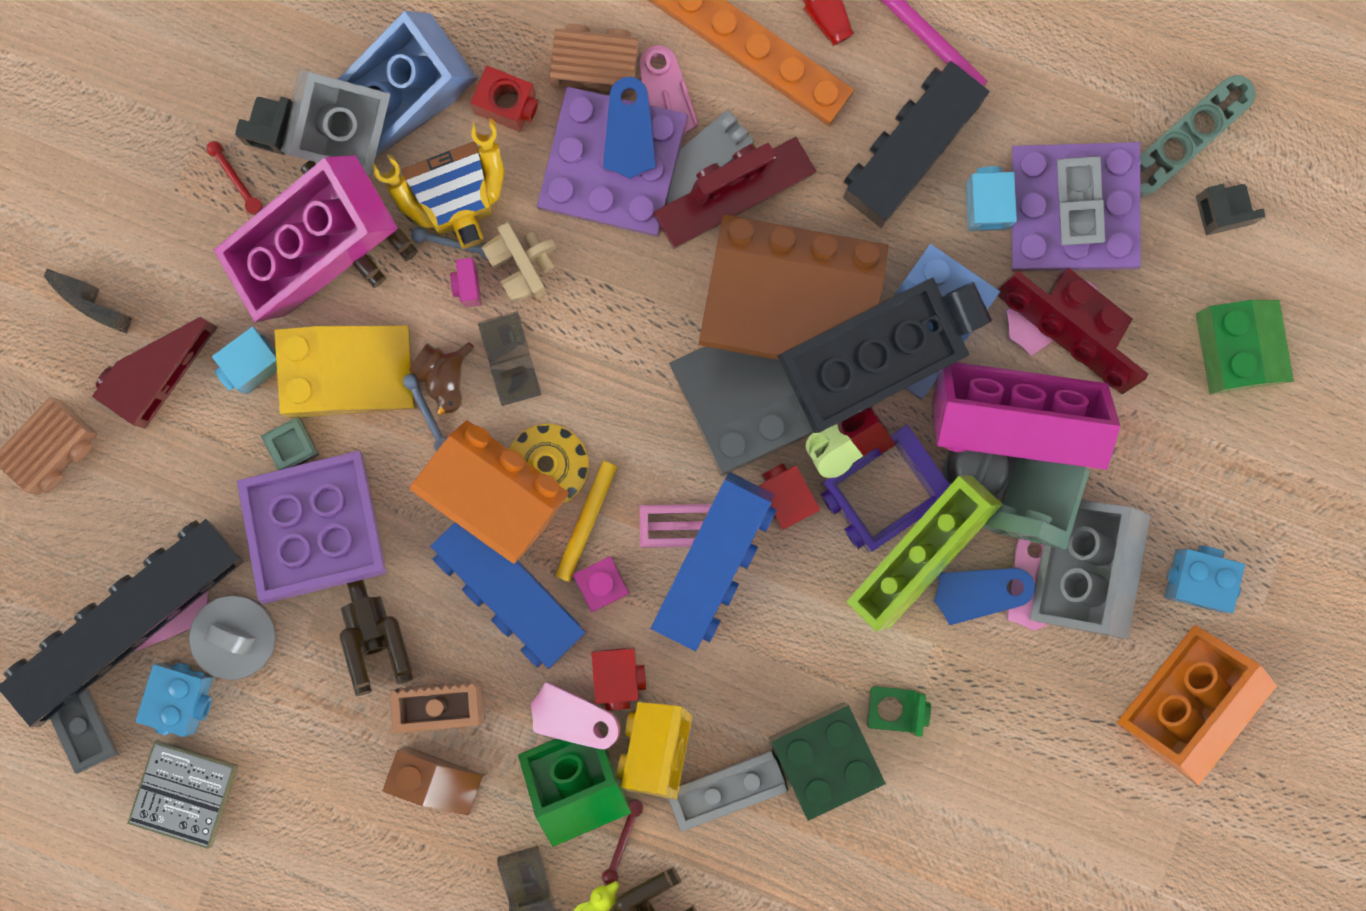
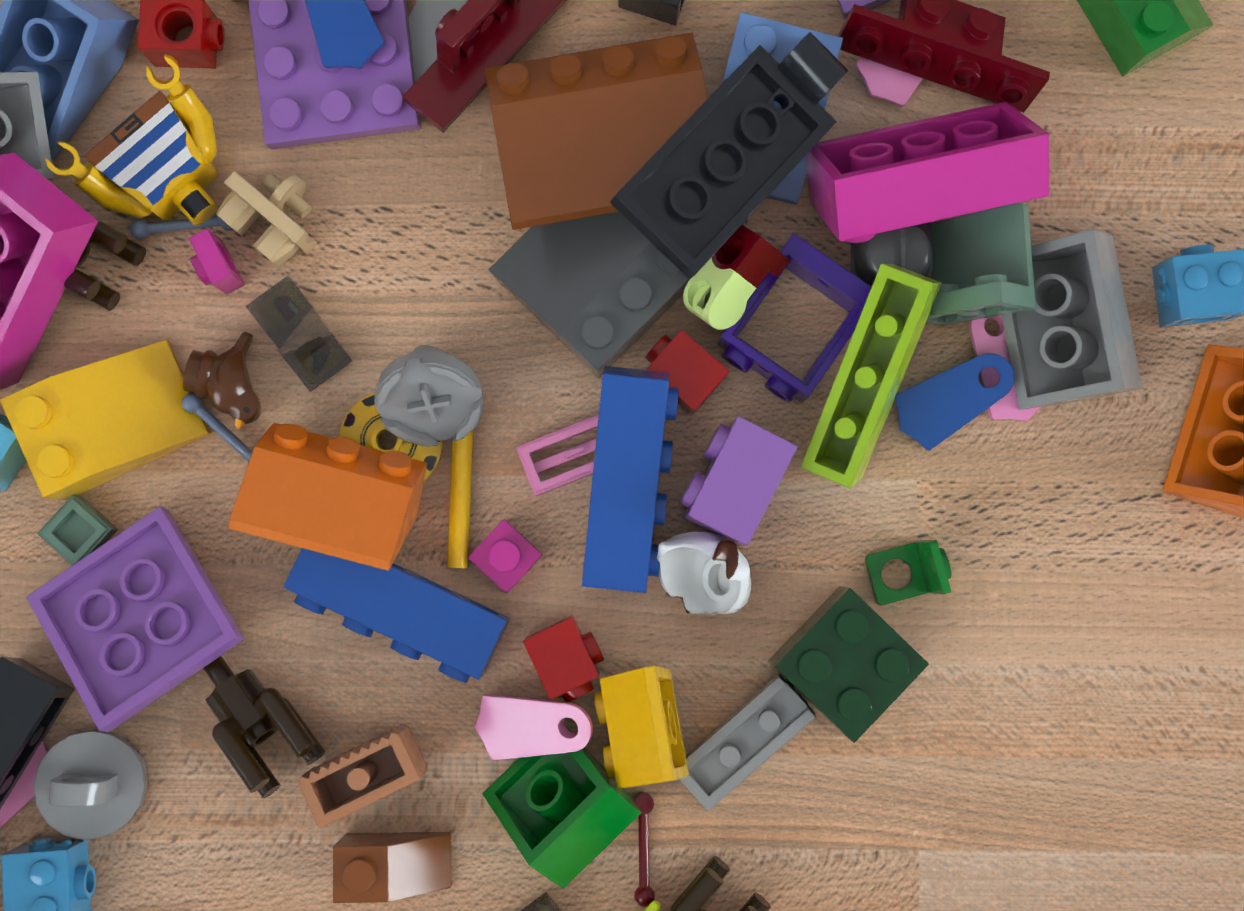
camera: 25 degrees left, 0 degrees up
(590, 445) = (429, 397): none -> light grey tile
(745, 653) = (704, 573): none -> white hair
(794, 594) = (738, 481): none -> medium lavender brick

